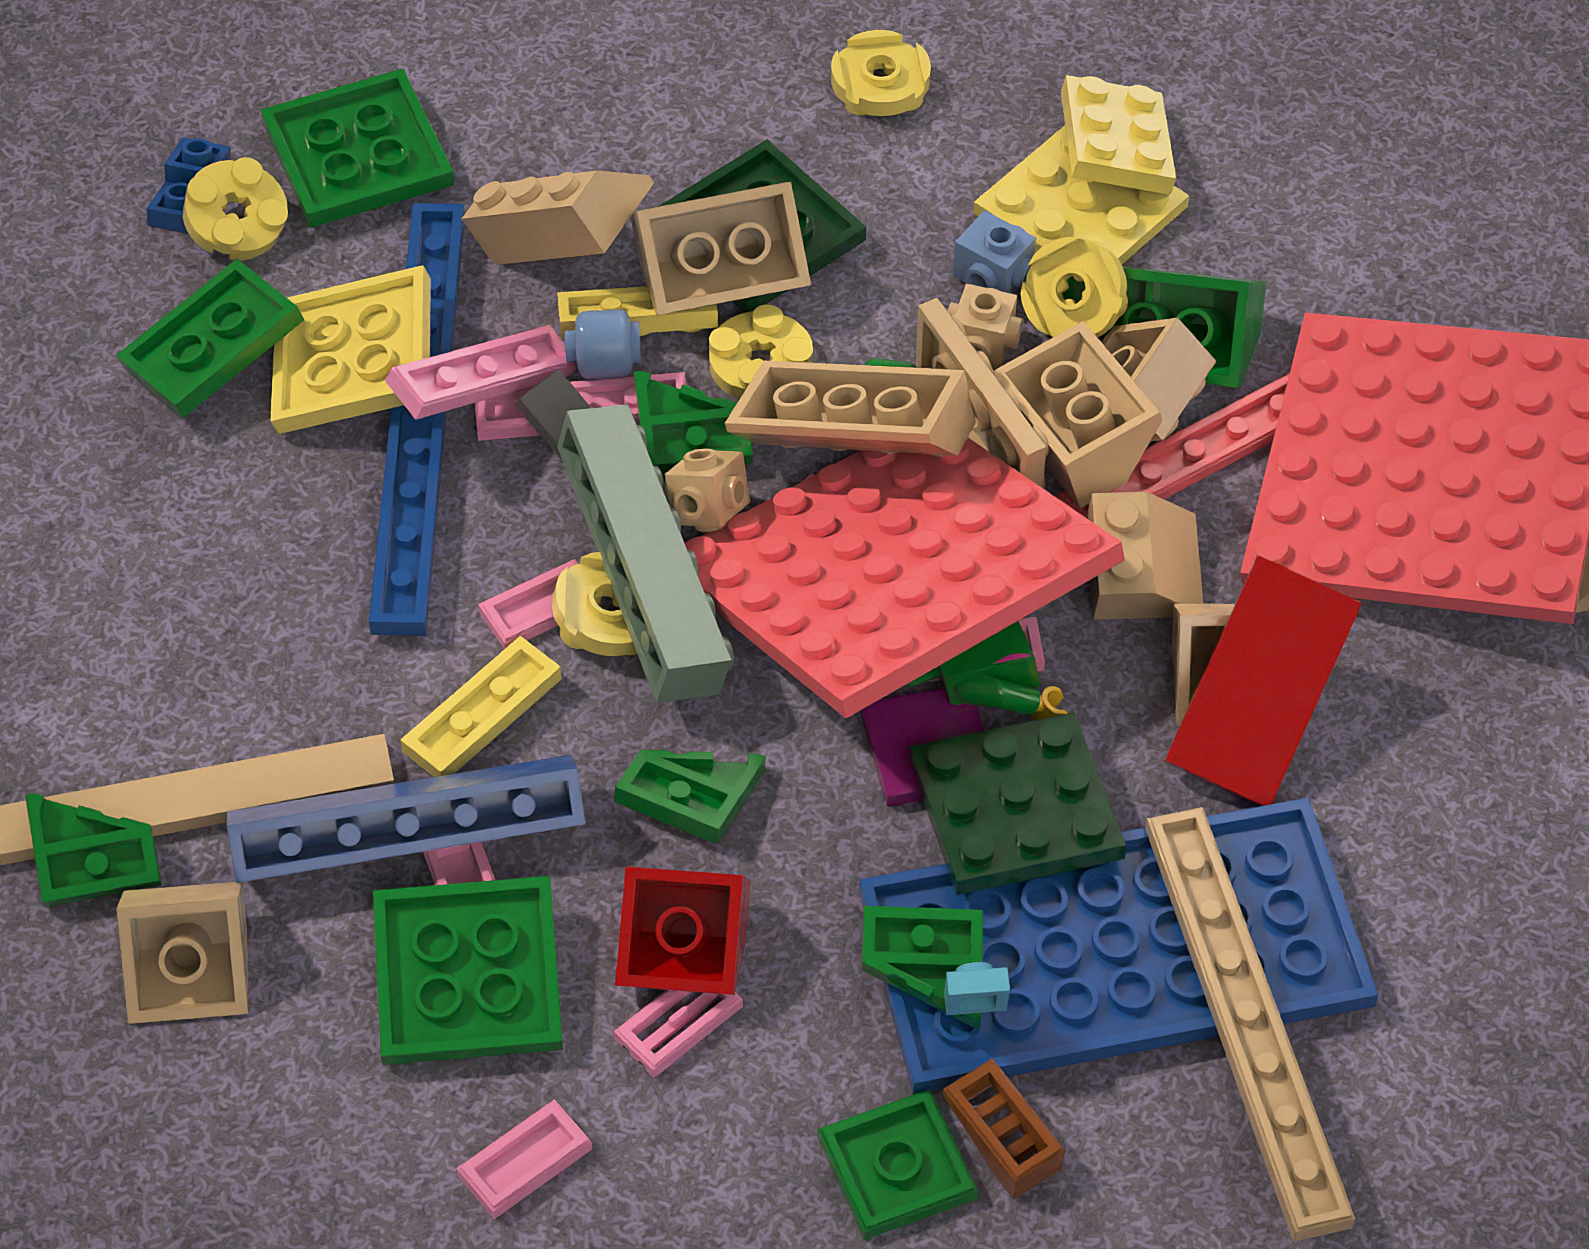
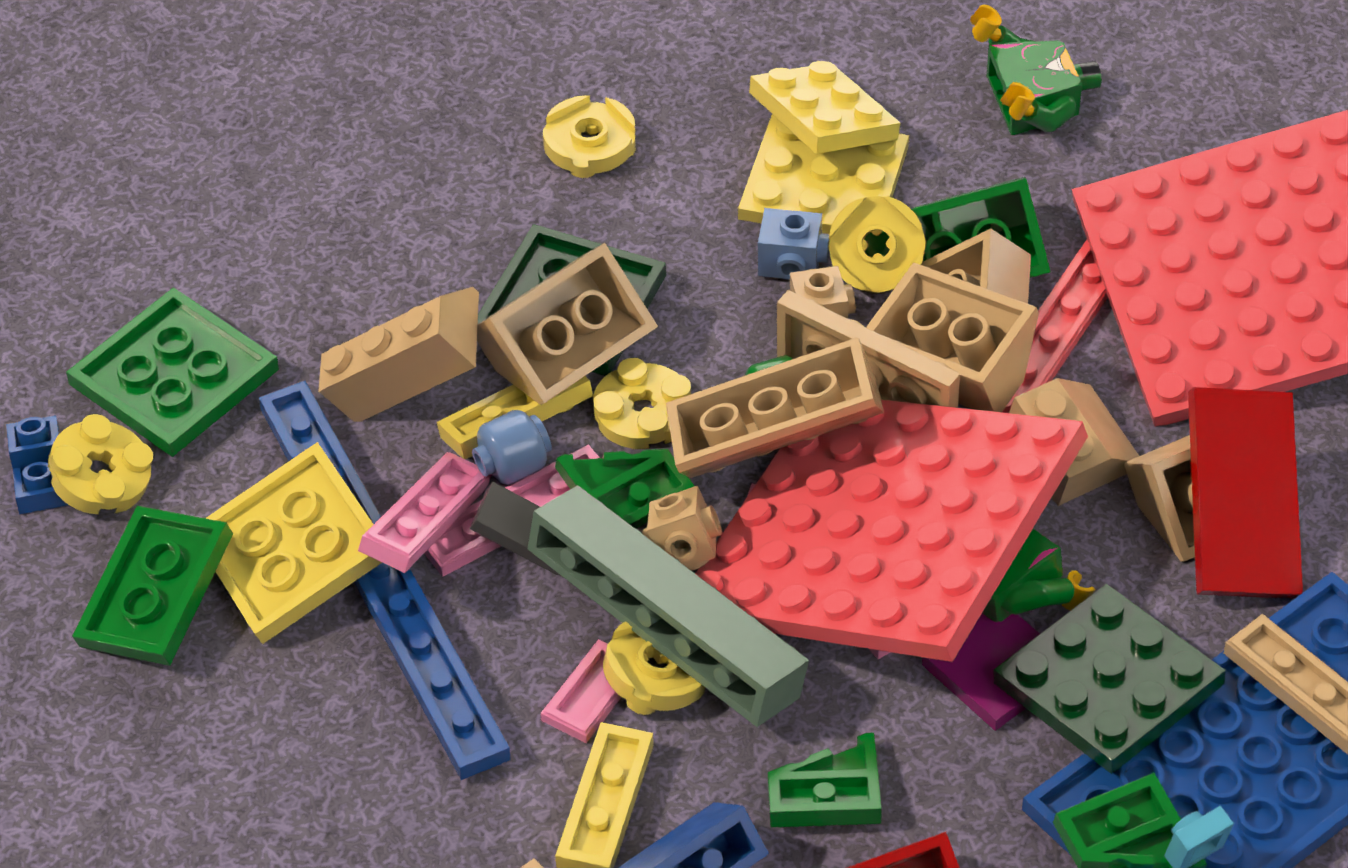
camera: 25 degrees left, 5 degrees down
(1347, 184) = (1032, 78): none -> green torso

